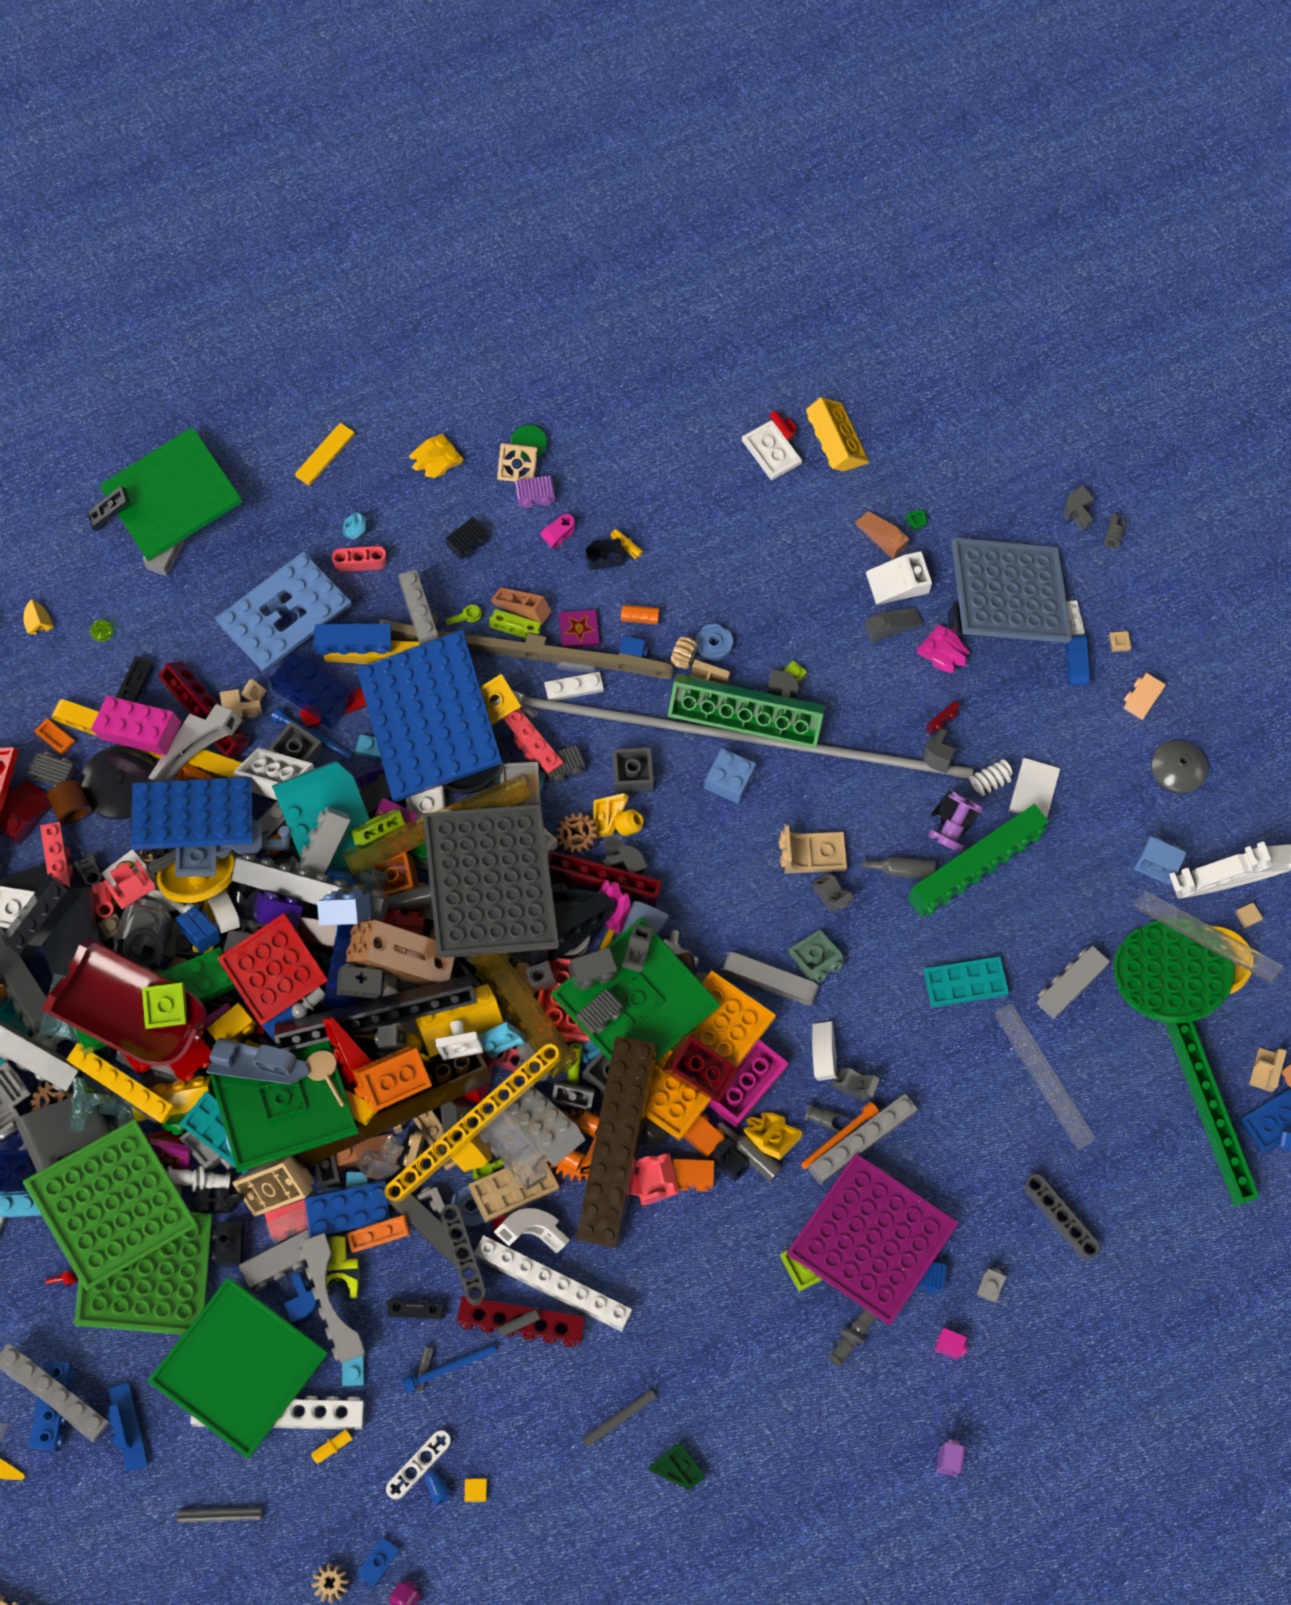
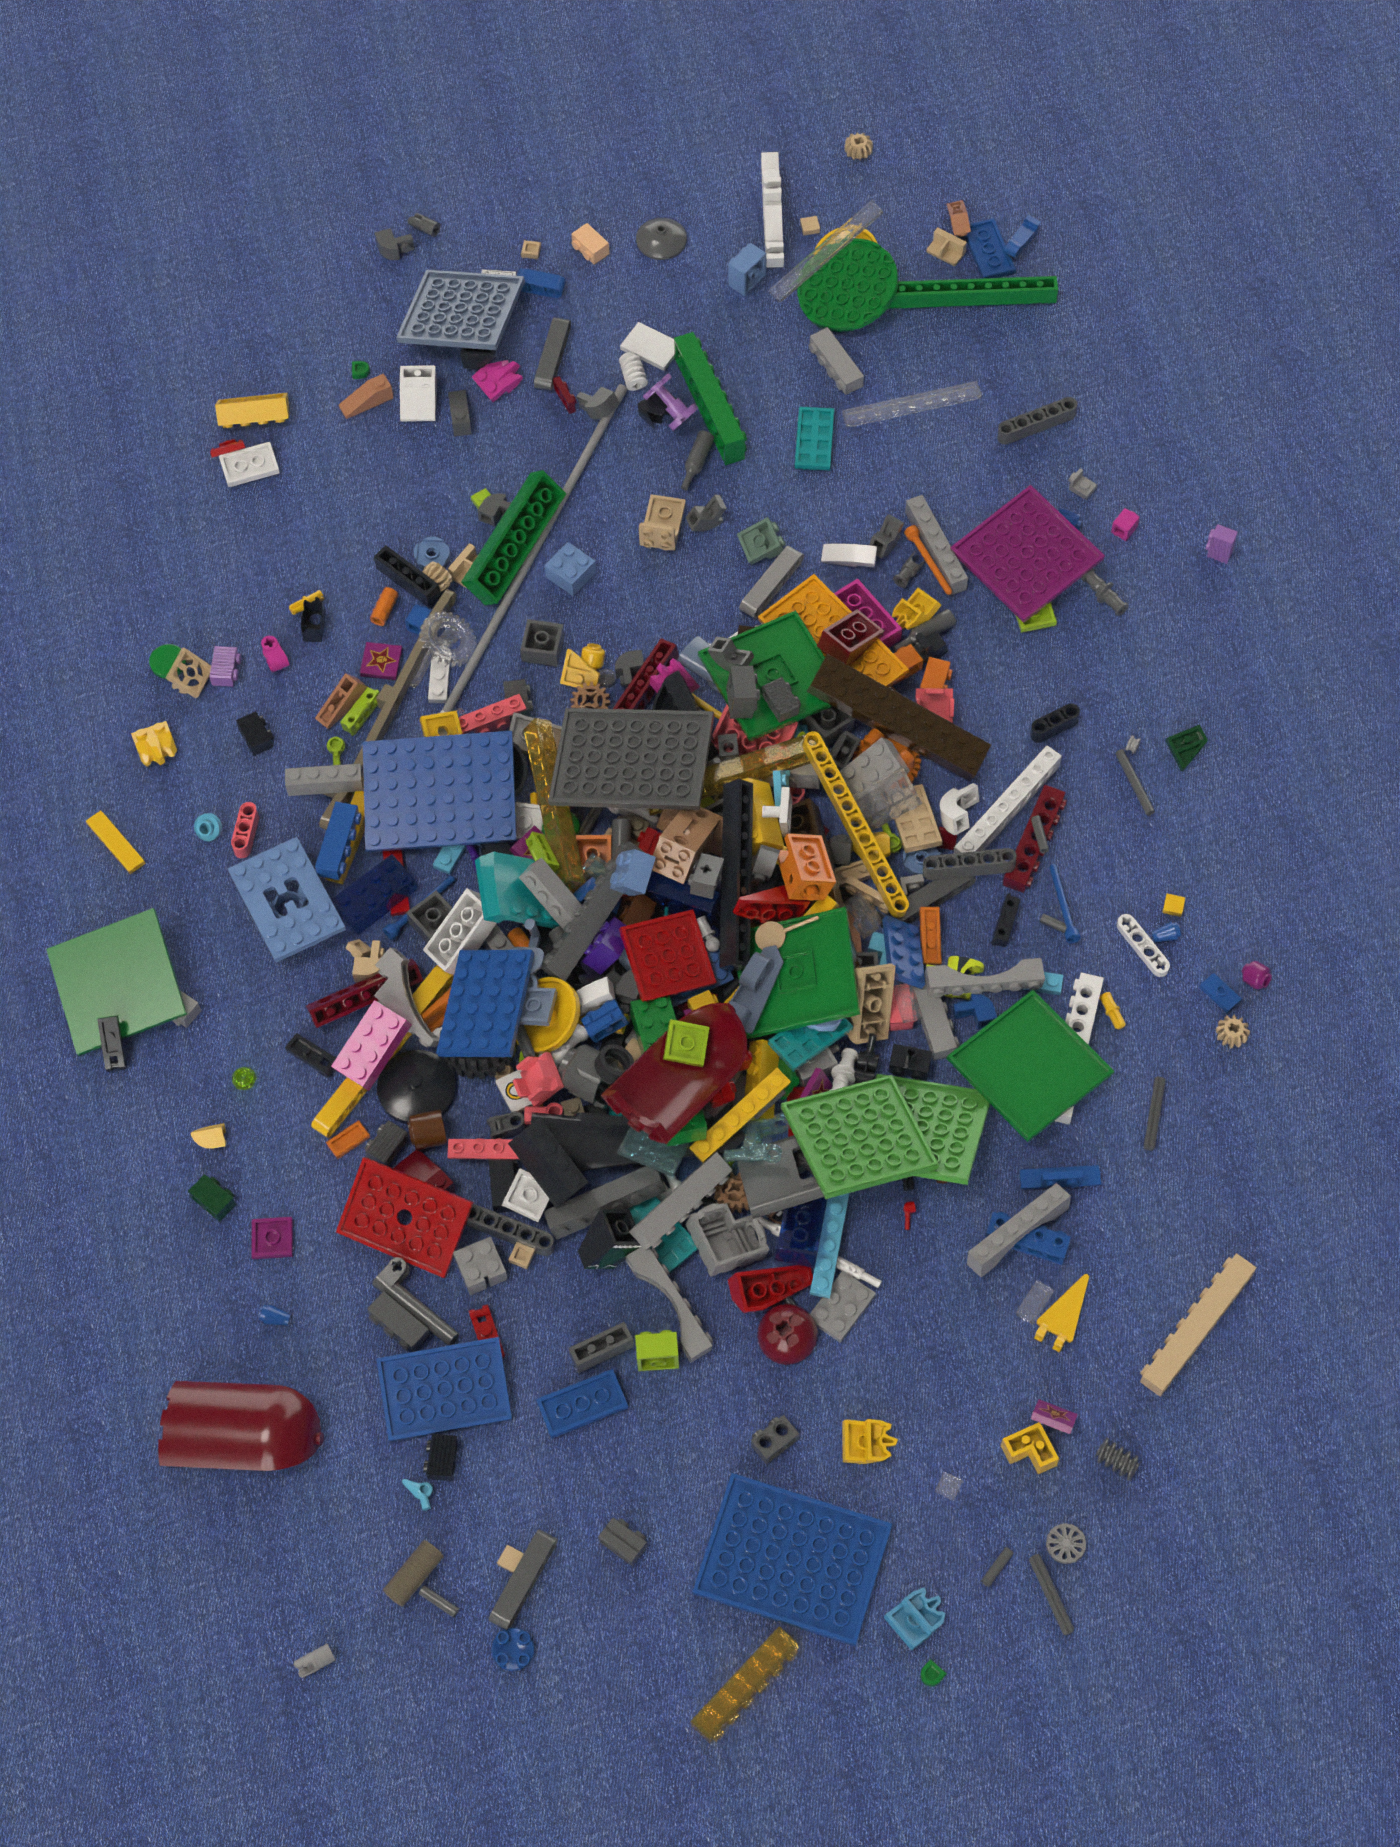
camera: 70 degrees left, 5 degrees down
(624, 695) = (442, 645): none -> clear gear
(664, 1406) = (1133, 744): none -> light grey bush
(668, 1304) = (1059, 716): none -> black beam
(677, 624) = (407, 576): none -> black brick
(992, 694) = (552, 353): none -> dark grey beam

